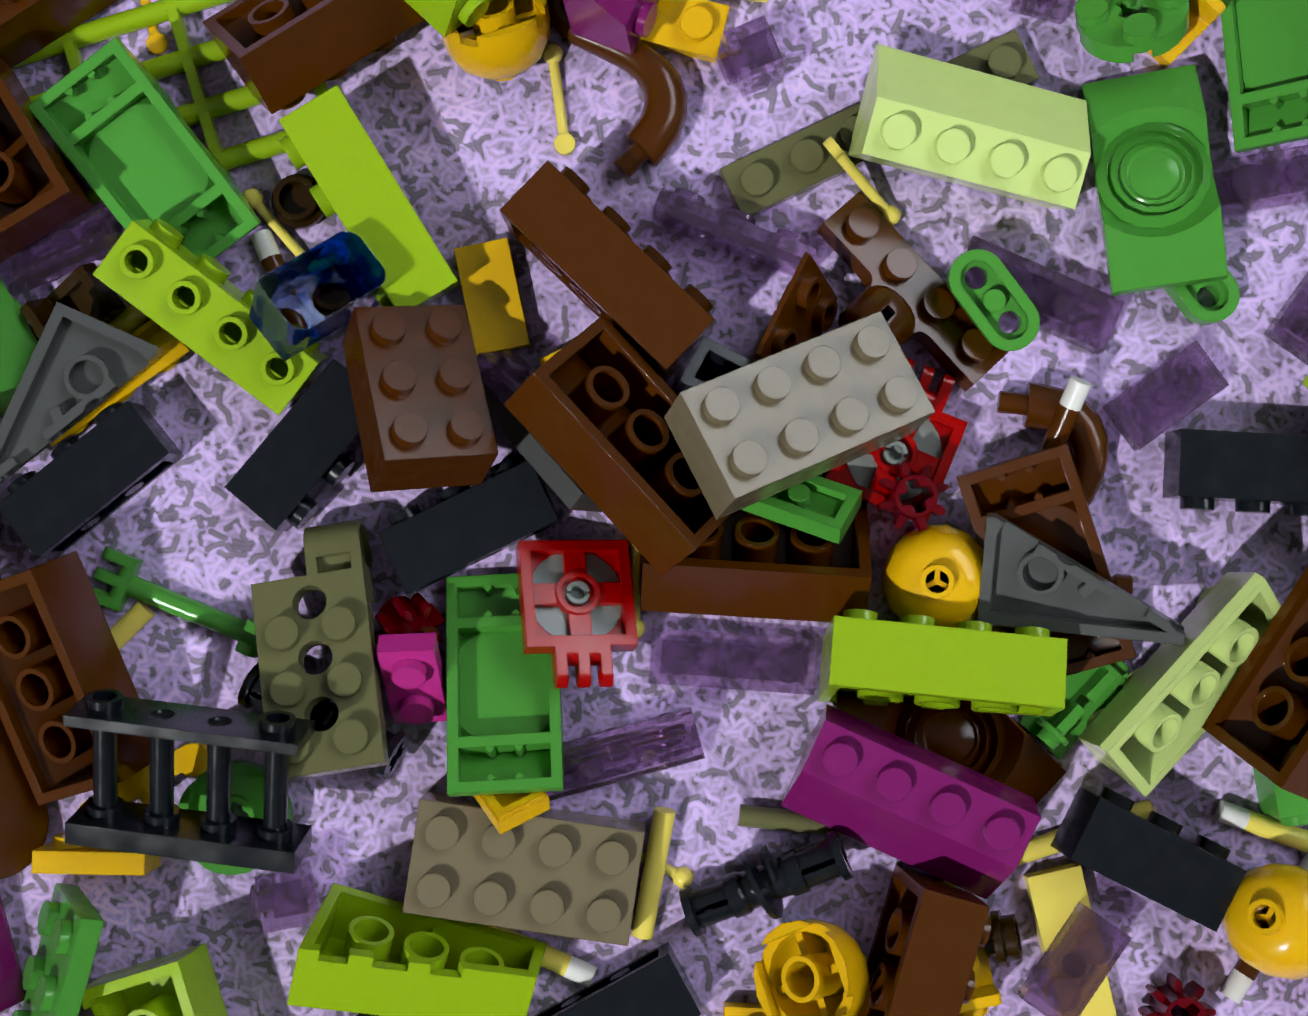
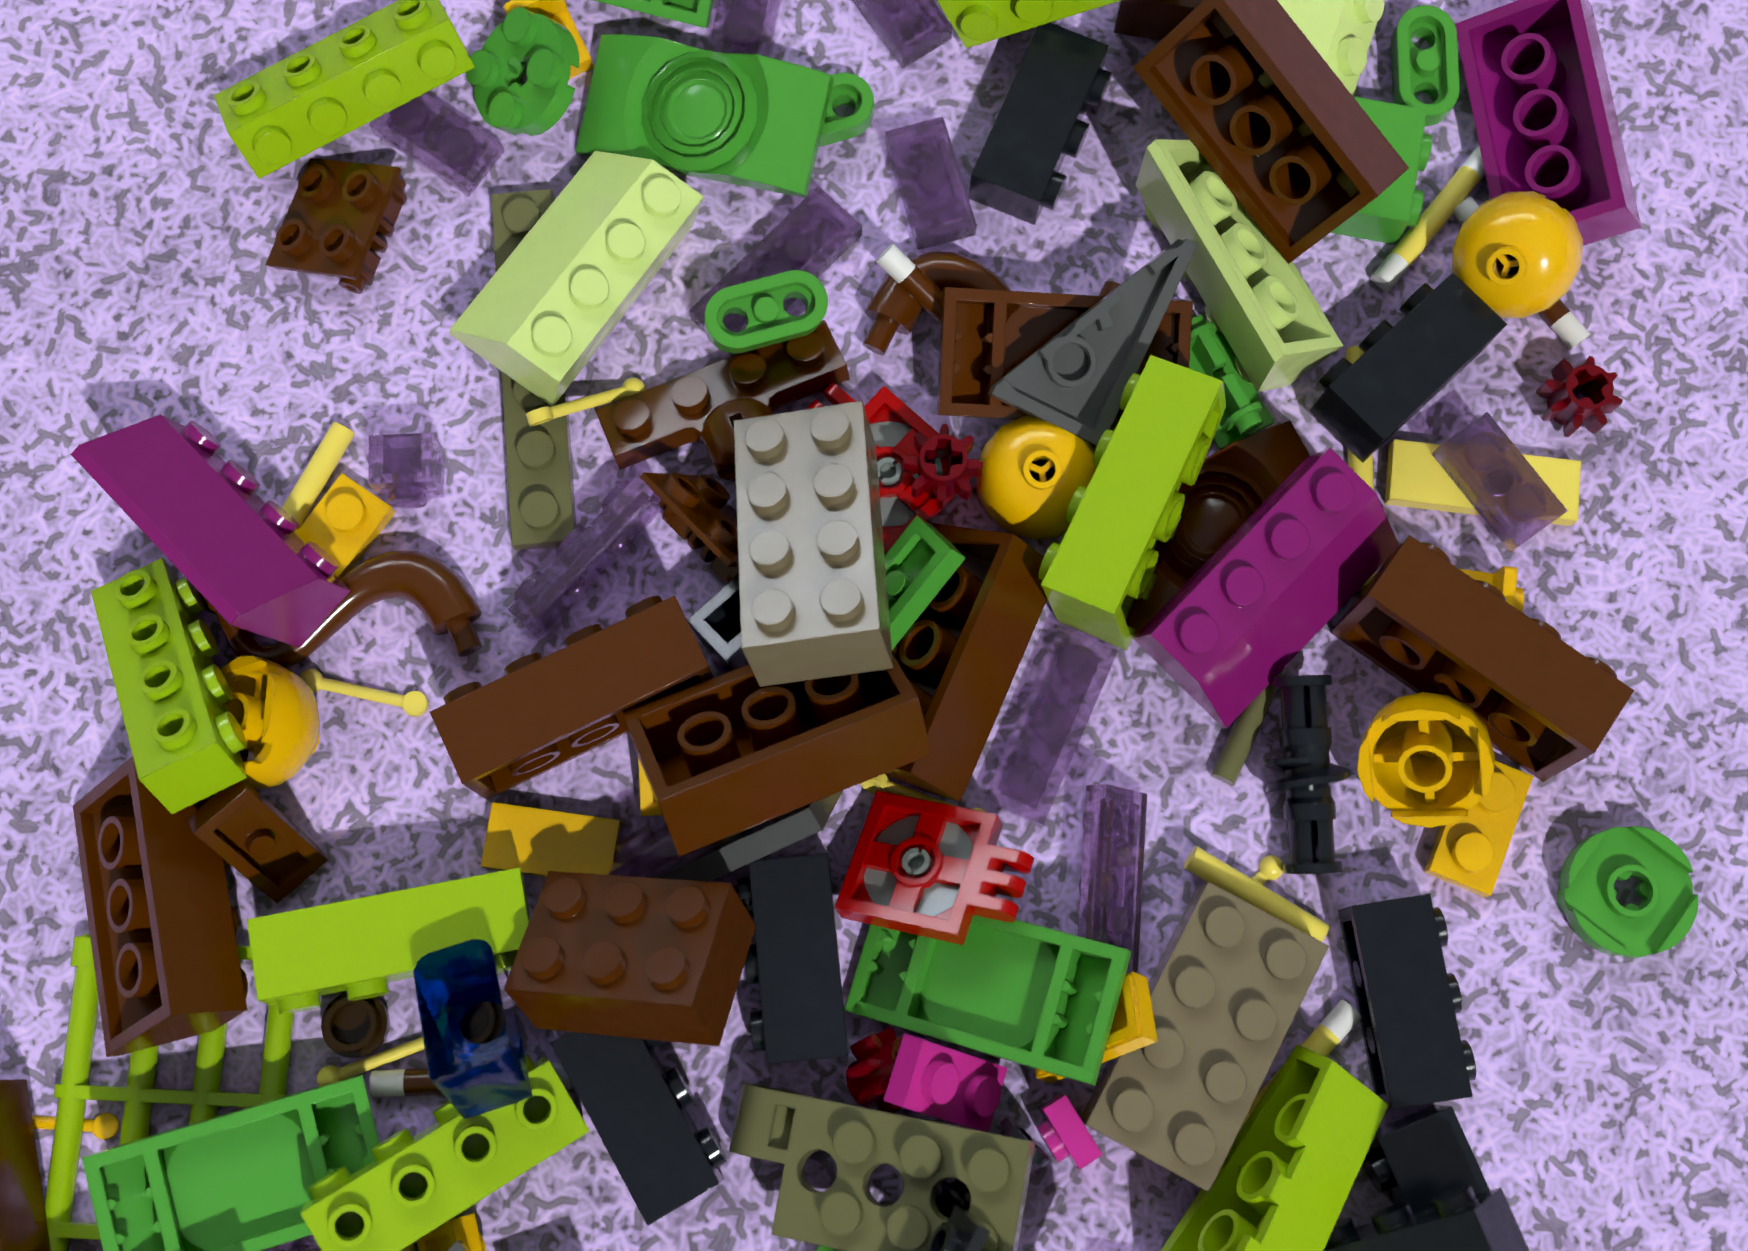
camera: 75 degrees left, 10 degrees down
(406, 65) = (257, 840): none -> reddish brown plate
(411, 784) = (1066, 1133): none -> dark pink plate
(1004, 939) = (1453, 542): dark brown plate -> none

